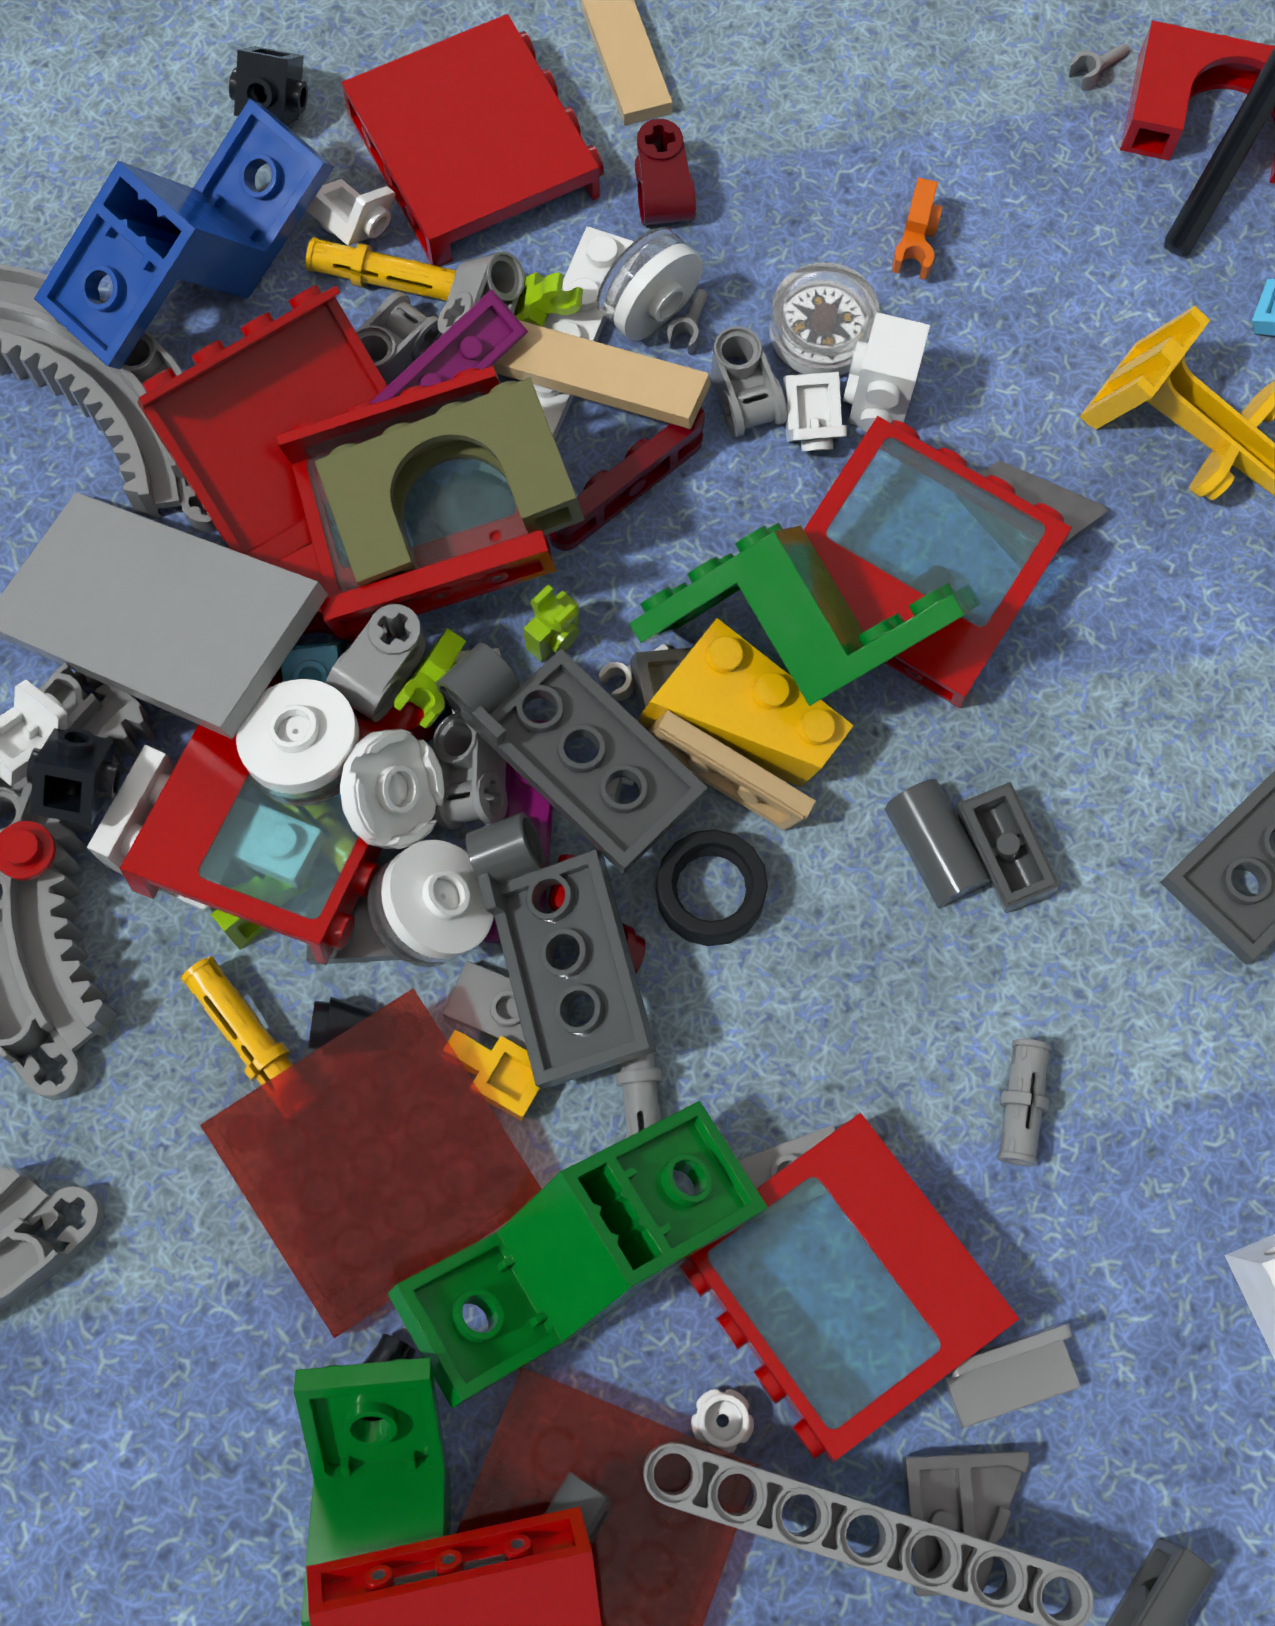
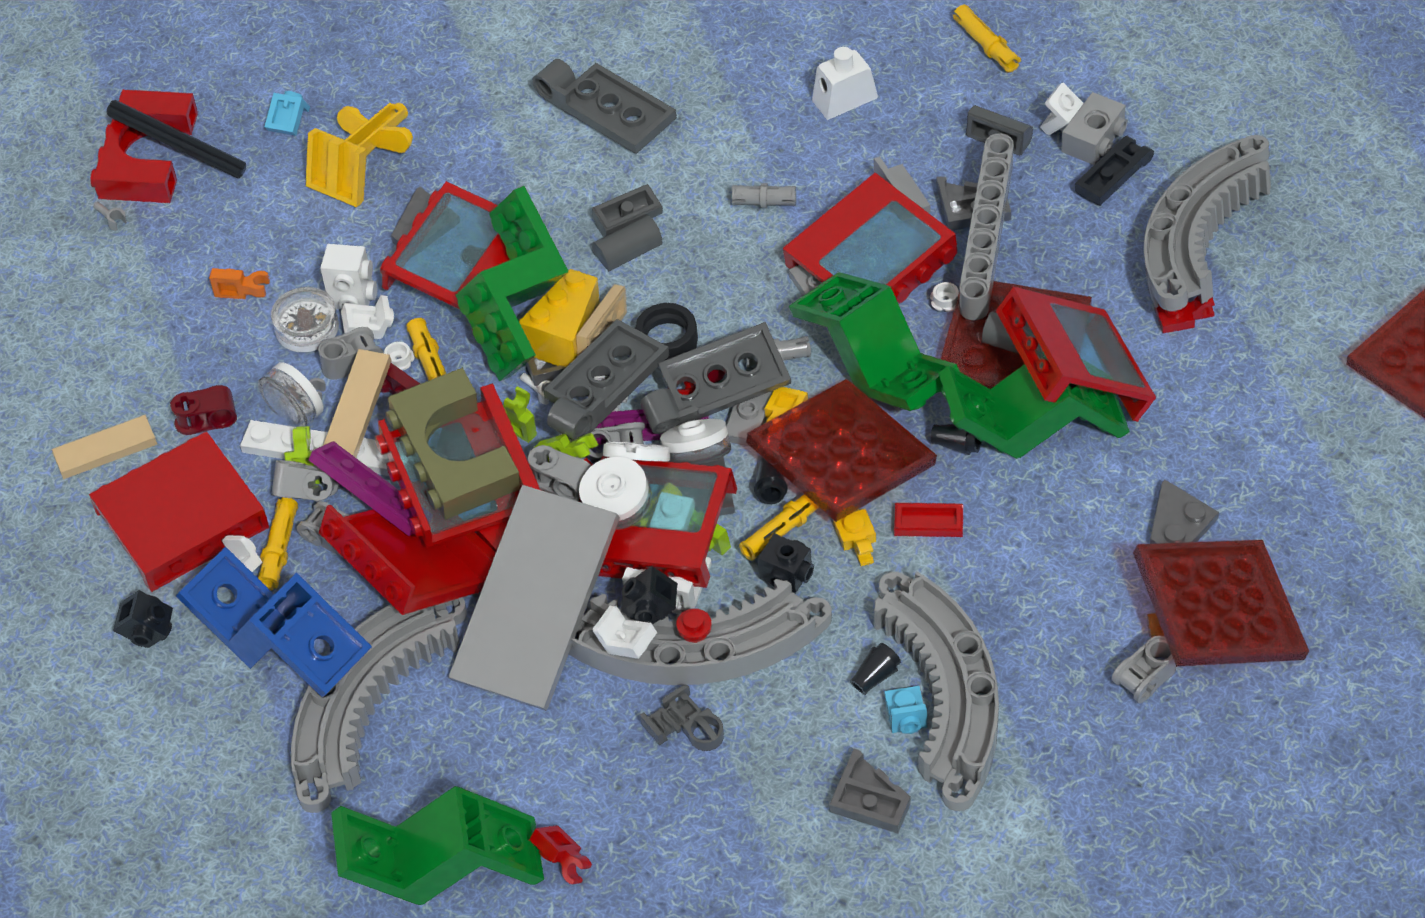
camera: 90 degrees left, 20 degrees down
(146, 1029) = (785, 561): none -> black brick
(199, 1168) = (857, 533): none -> yellow plate
(211, 1303) = (928, 519): none -> red tile
(716, 504) = (425, 348): none -> yellow pin
(731, 445) = (402, 351): none -> white plate

